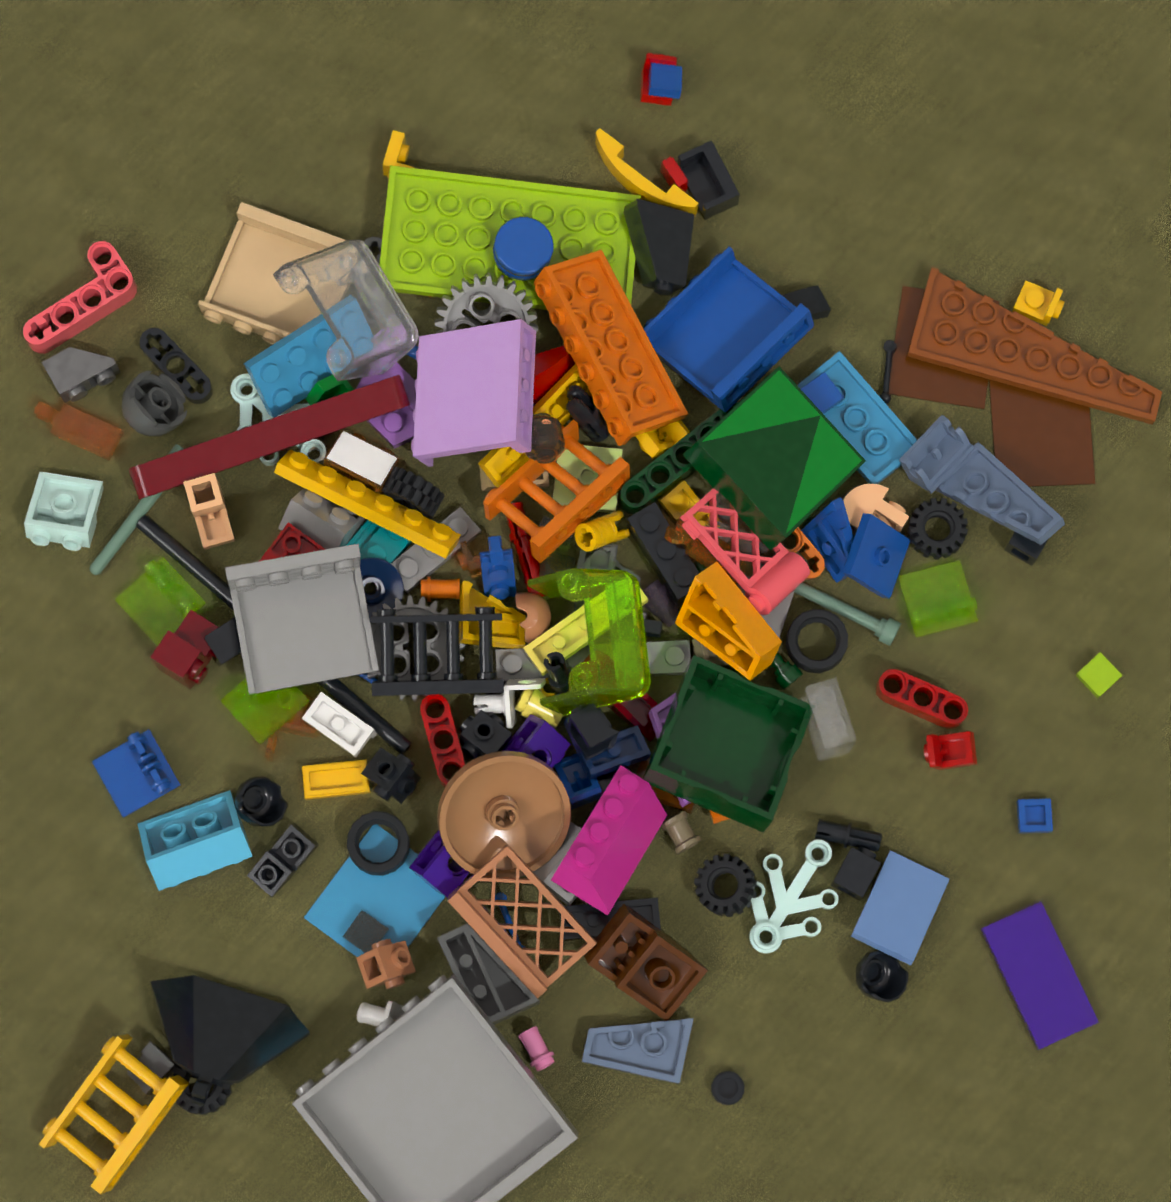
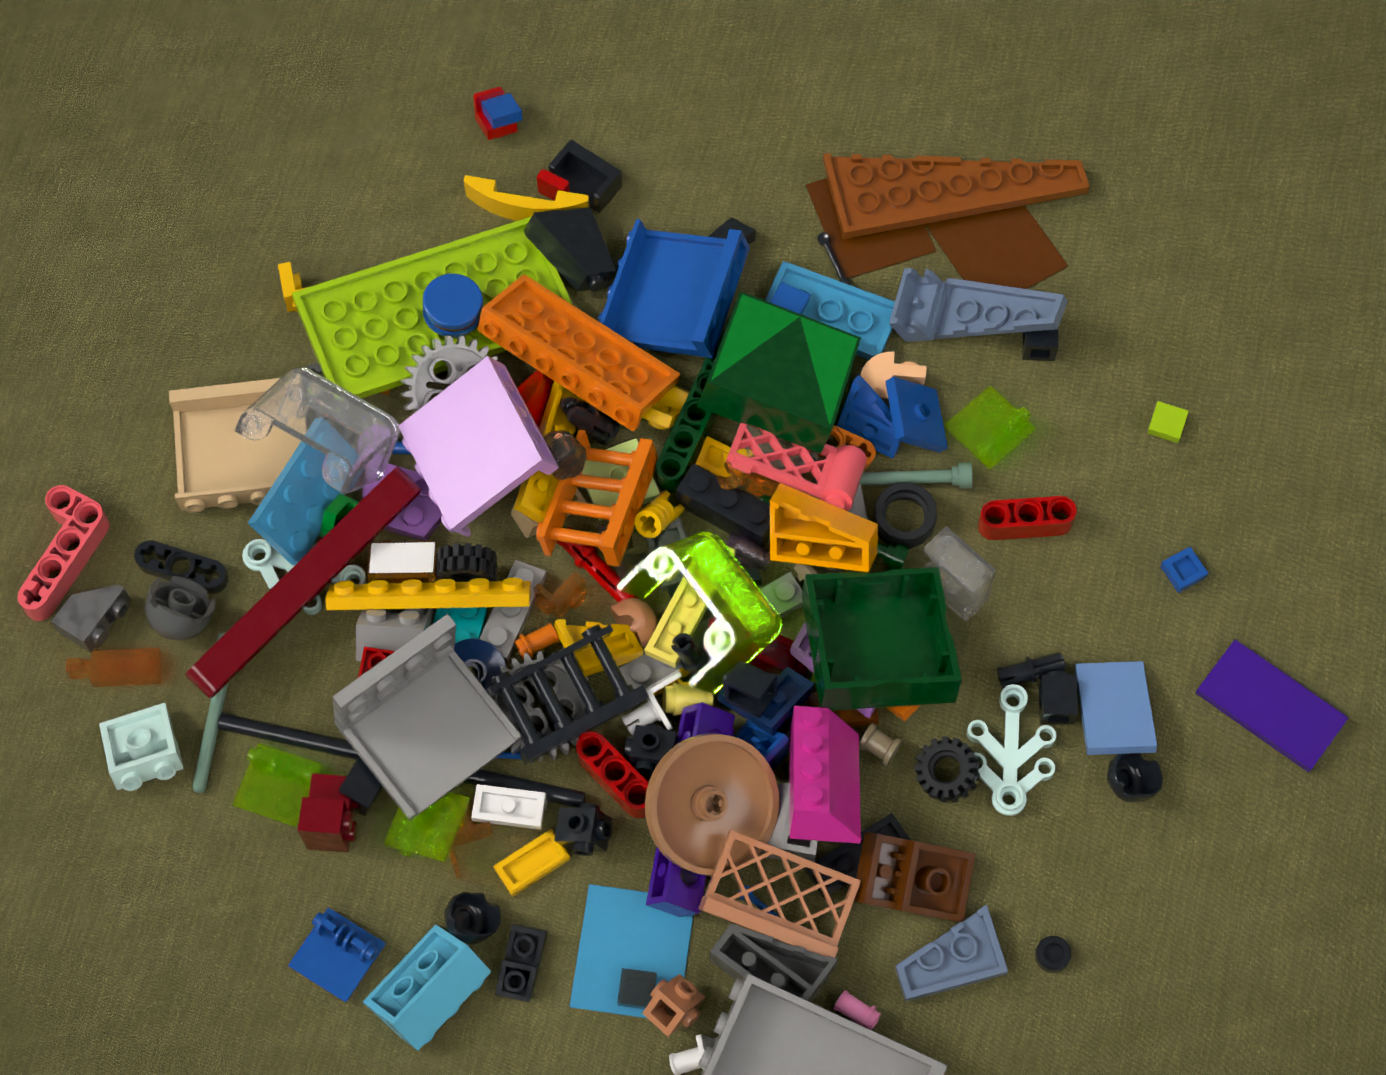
camera: 25 degrees left, 10 degrees down
(209, 511) = (281, 676): light nougat brick -> none
(361, 825) = (593, 874): black tyre -> none
(498, 570) = (582, 592): blue hinge -> none
(943, 510) = (960, 351): black tyre -> none
(950, 750) = (1079, 549): red bracket -> none
(1039, 303) = (932, 139): yellow bracket -> none

